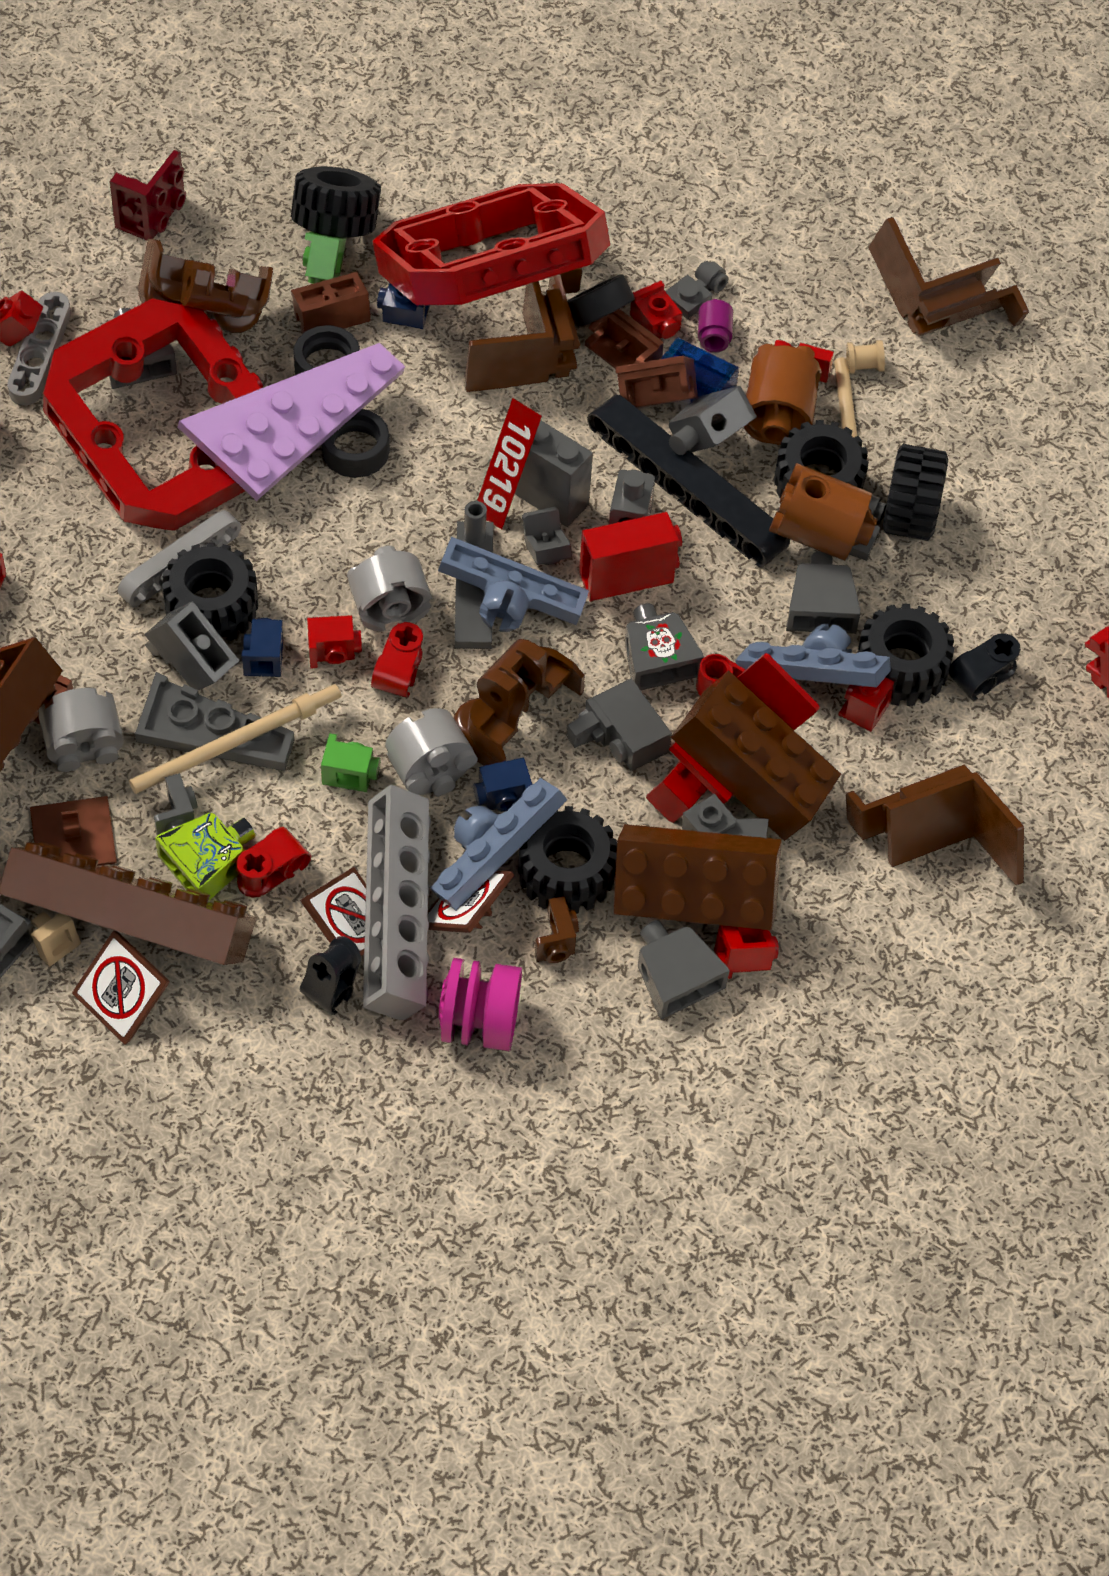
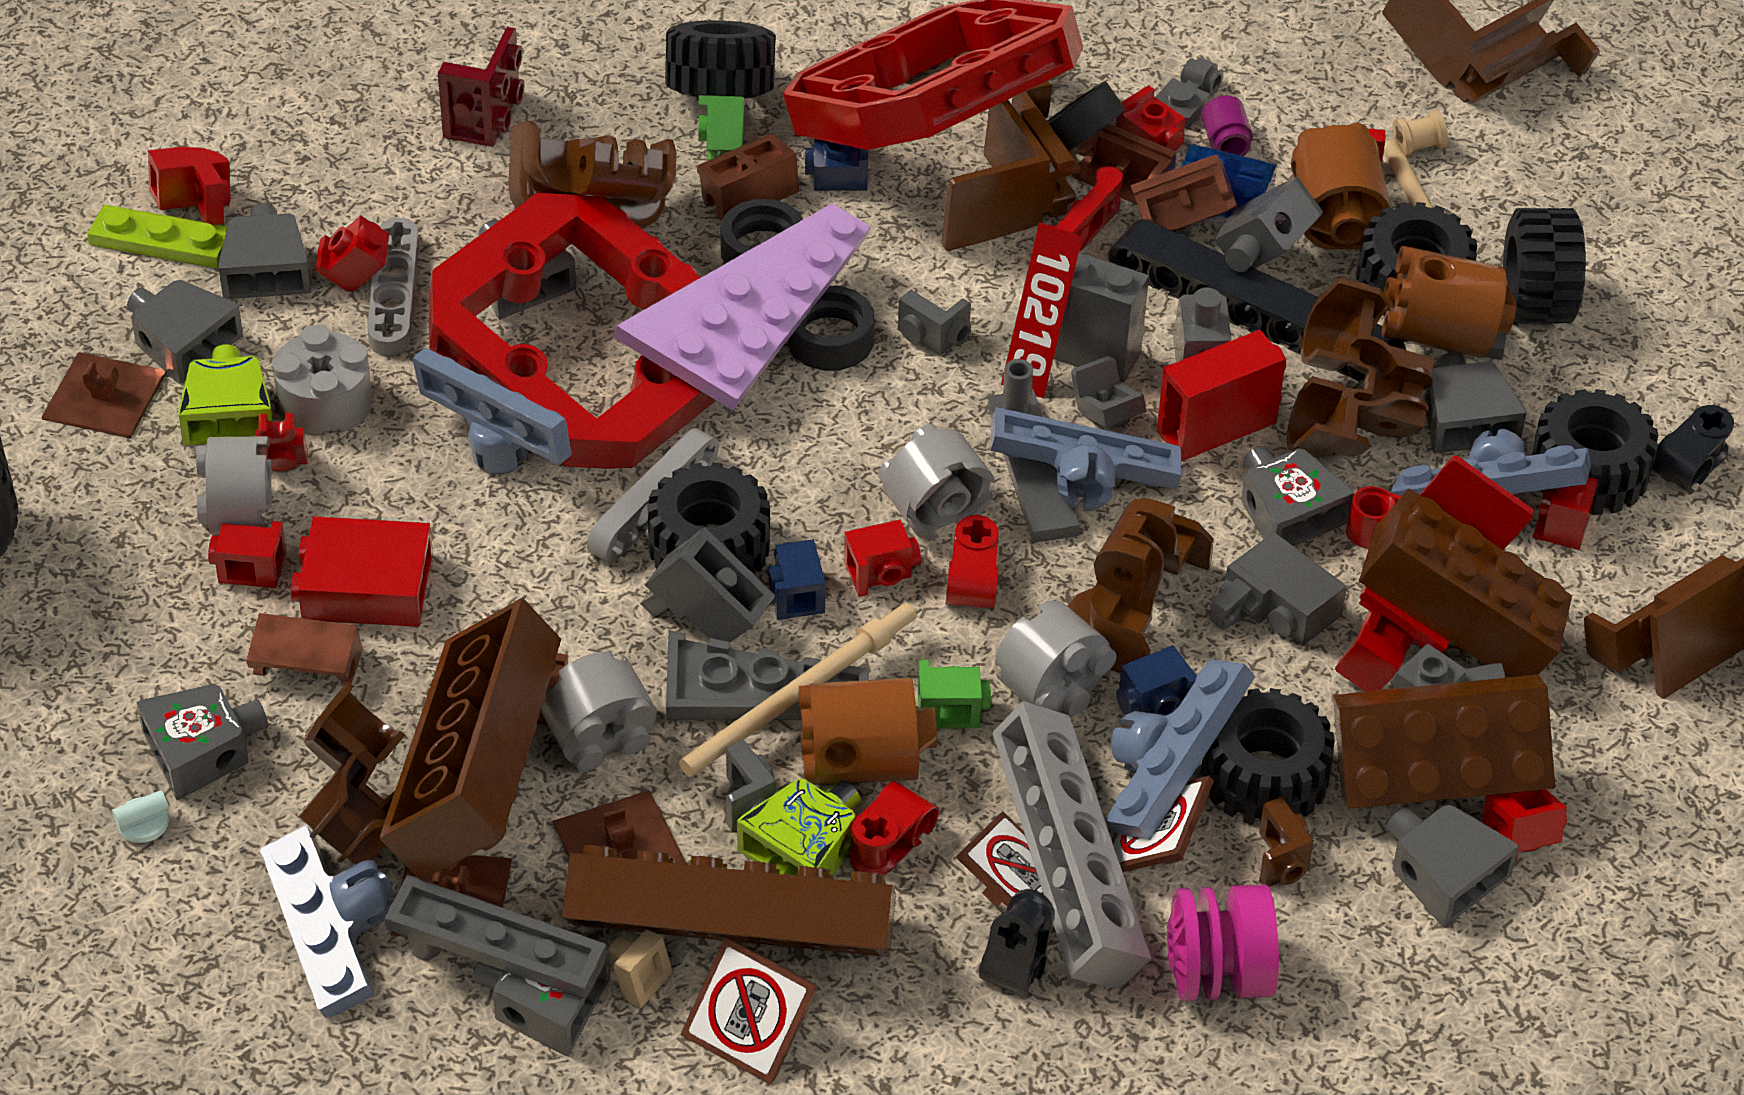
camera: 10 degrees left, 10 degrees down
(76, 481) = (497, 417): none -> sand blue plate
(269, 783) = (863, 731): none -> dark orange cylinder
(435, 459) = (931, 325): none -> dark grey bracket
(577, 385) = (1096, 208): none -> red plate
(764, 572) = (1394, 380): none -> reddish brown piece

